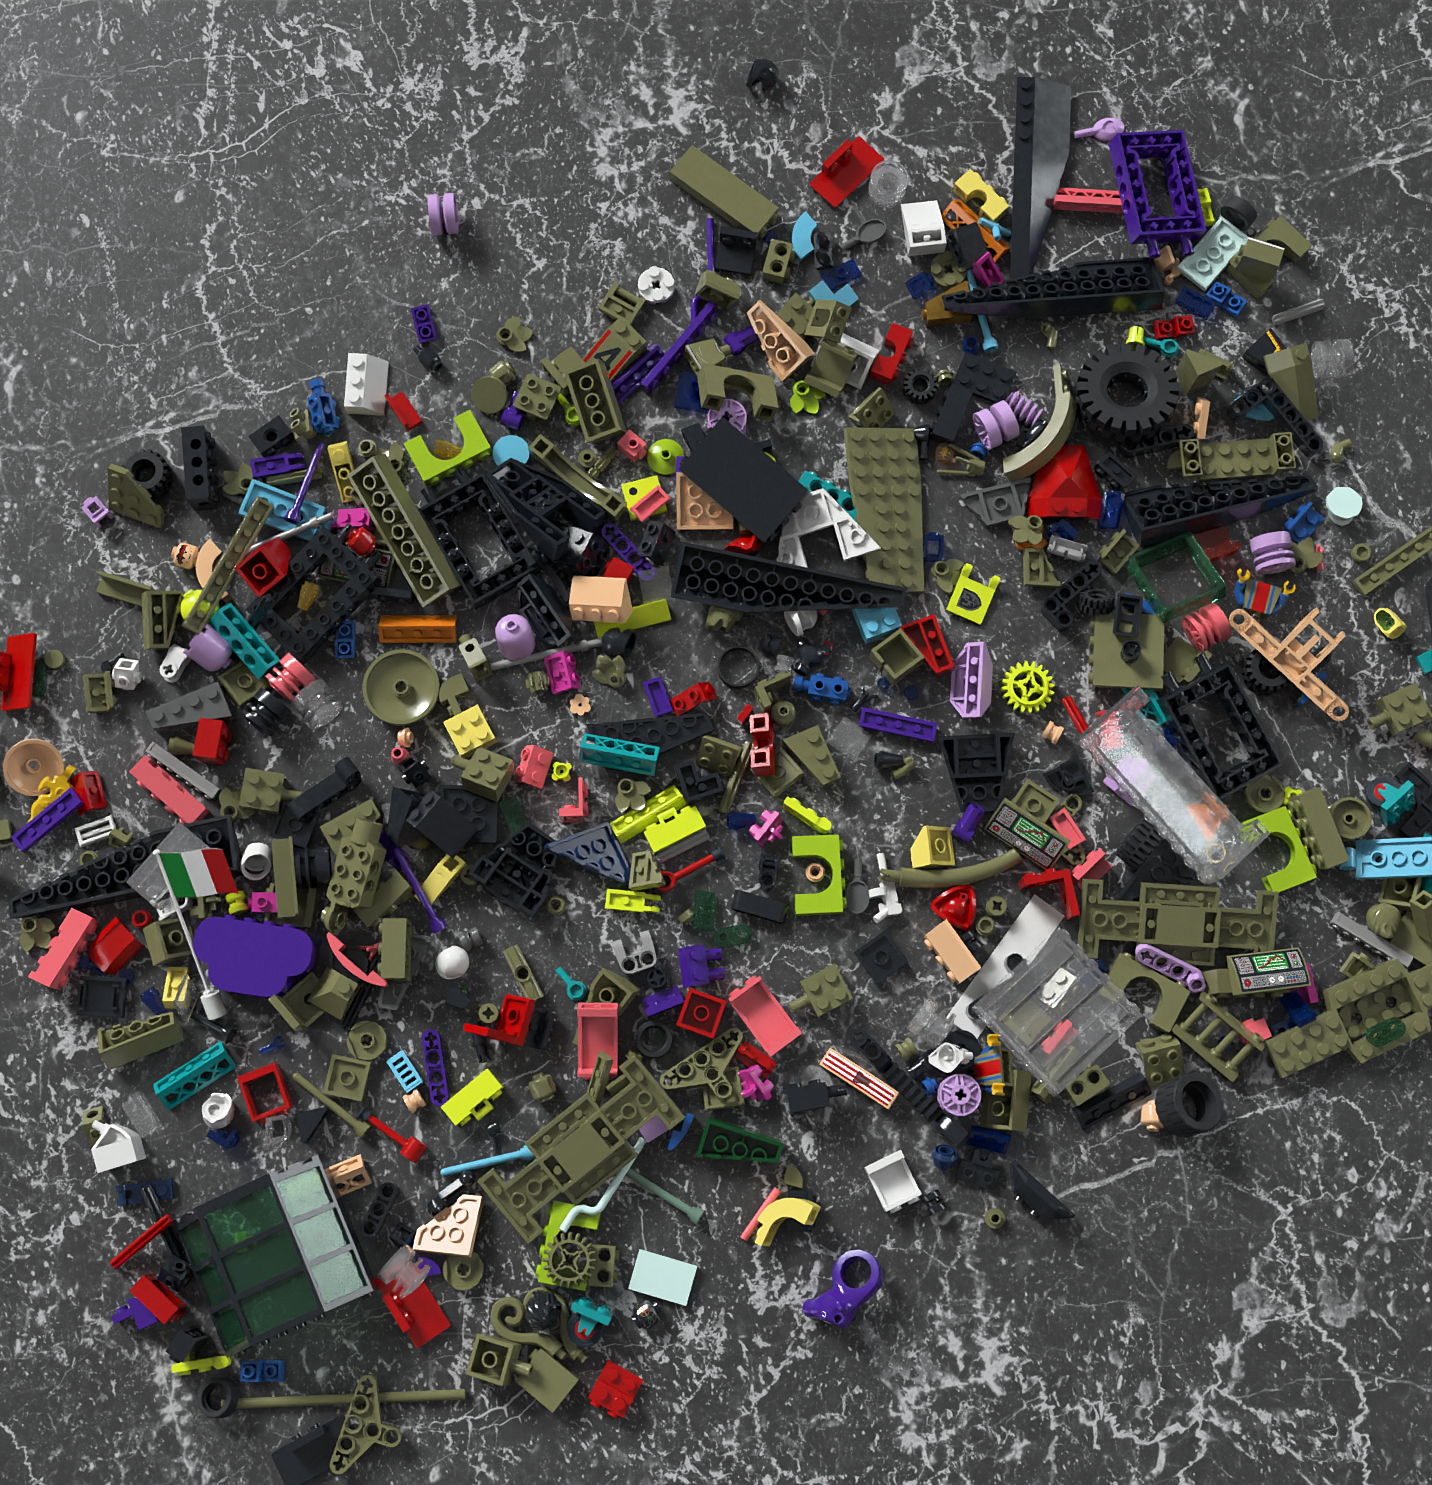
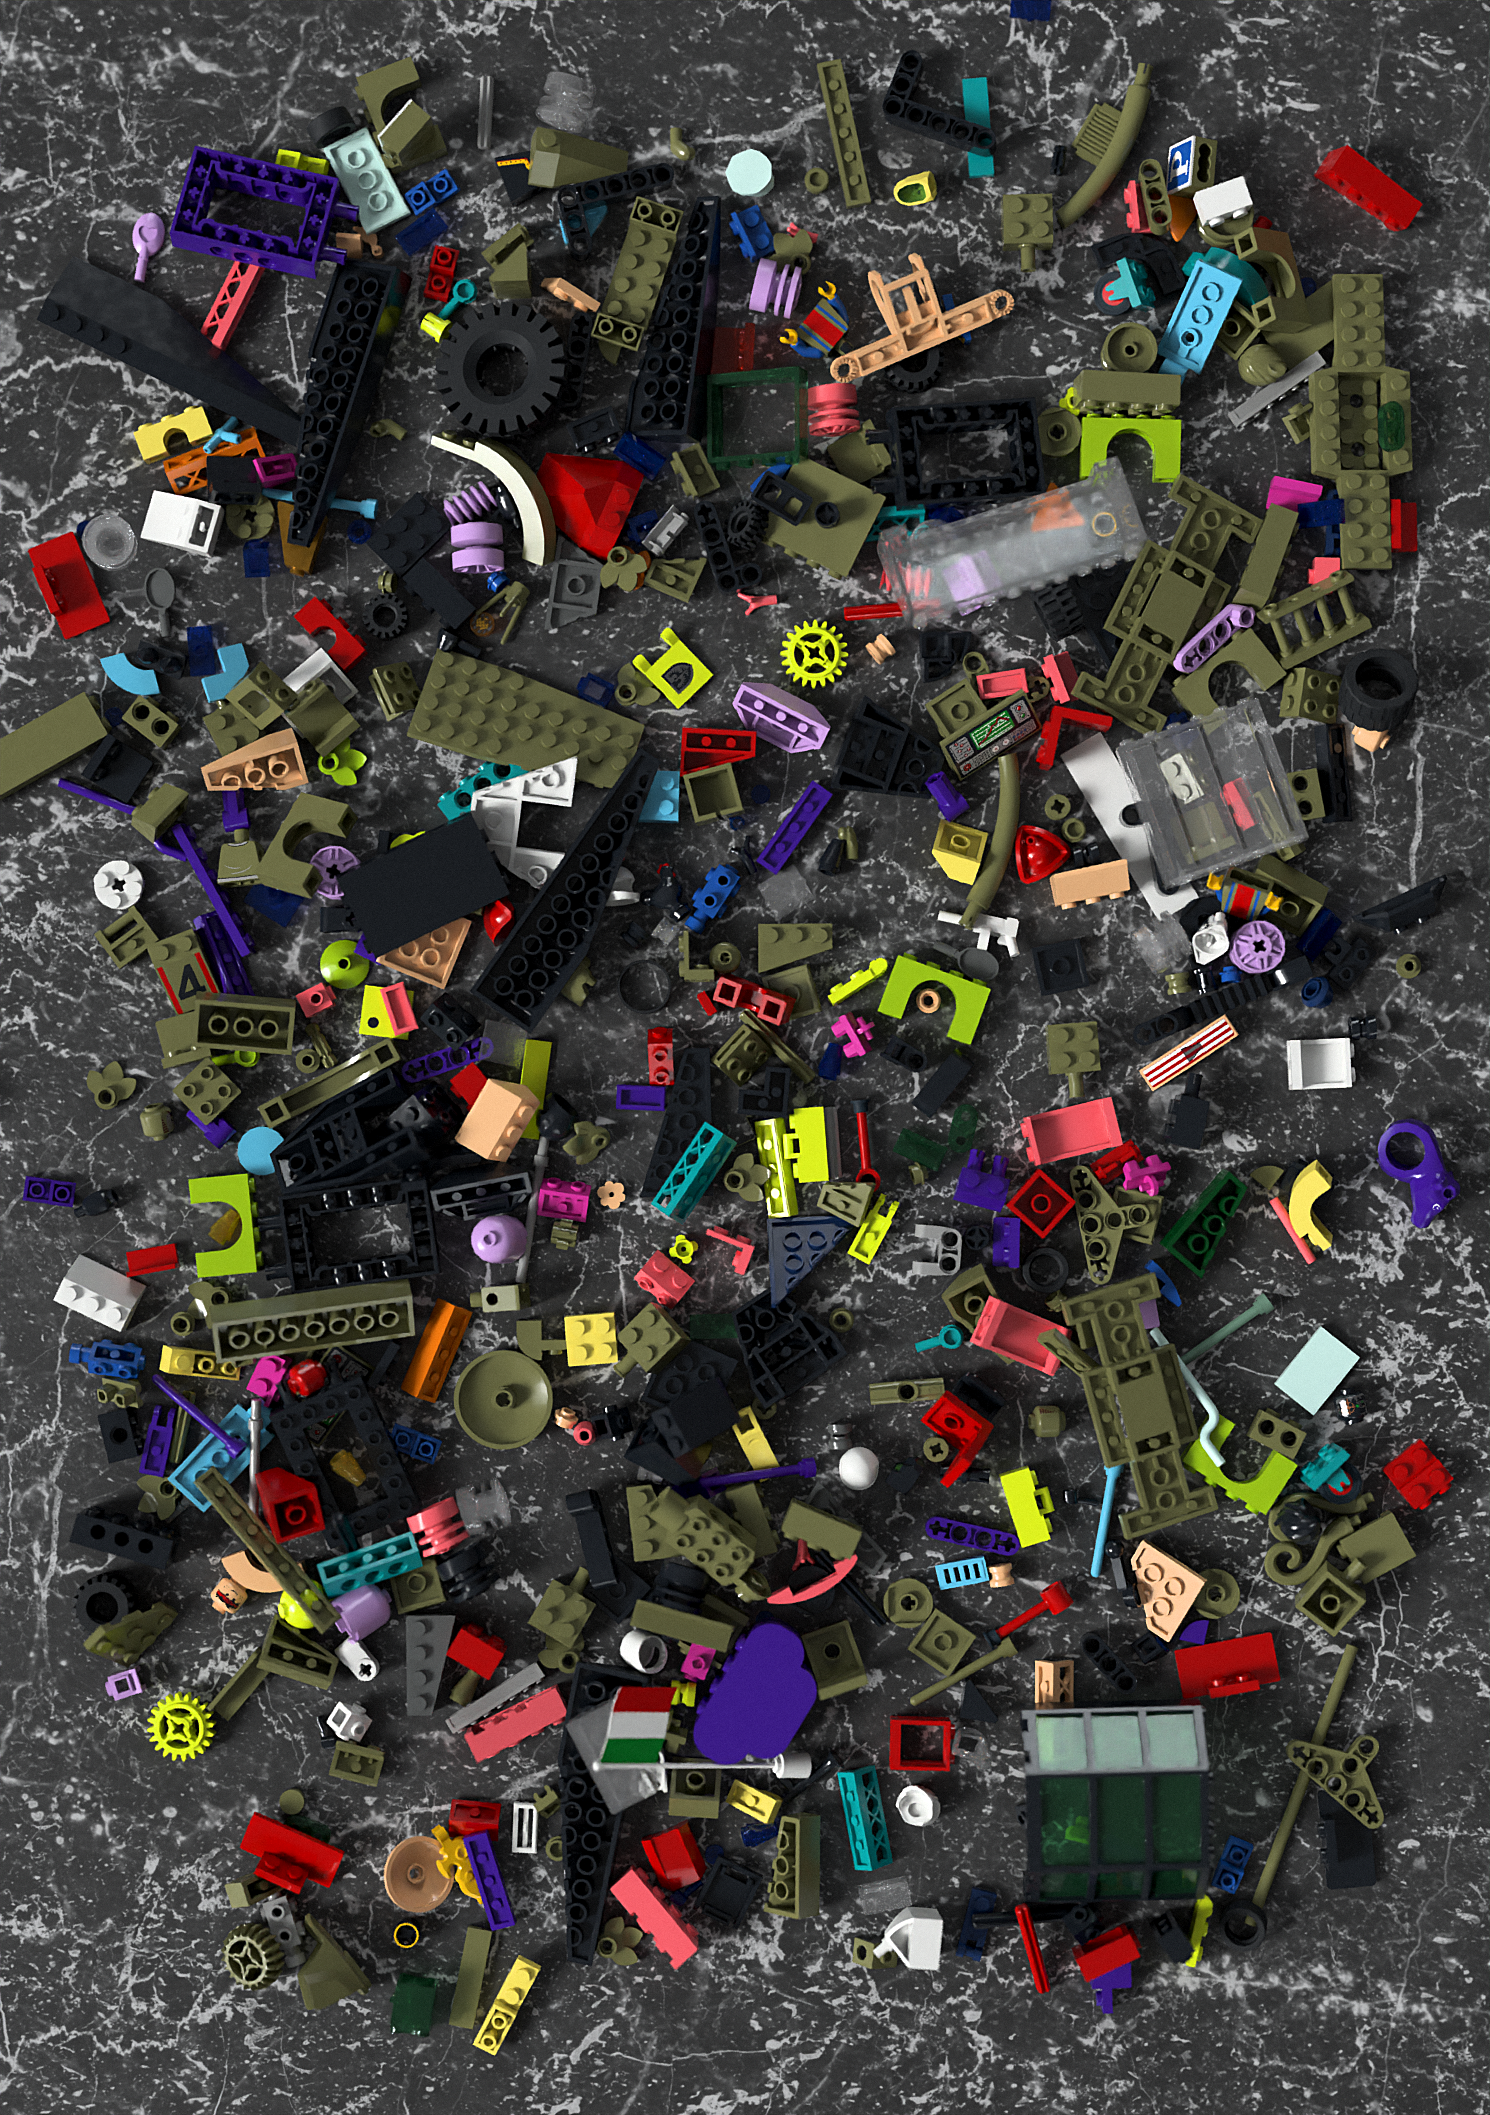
camera: 60 degrees left, 10 degrees up
(80, 561) = (165, 1740): none -> neon yellow gear
(137, 914) = (654, 1820): red plate -> none
(186, 998) = (774, 1794): clear piece -> none
(221, 1138) = (949, 1814): clear blue bracket -> none
(272, 1045) = (867, 1715): clear blue hand -> none
(334, 993) = (838, 1619): olive slope -> none
(404, 1271) = (1193, 1661): clear wheel -> none
(489, 394) = (177, 1147): olive tile -> none
(555, 1270) = (1268, 1466): olive gear -> none
(1047, 634) = (758, 601): none -> coral bar
(1267, 971) = (1267, 529): slope -> none
(1316, 1075) = (1403, 526): none -> red panel

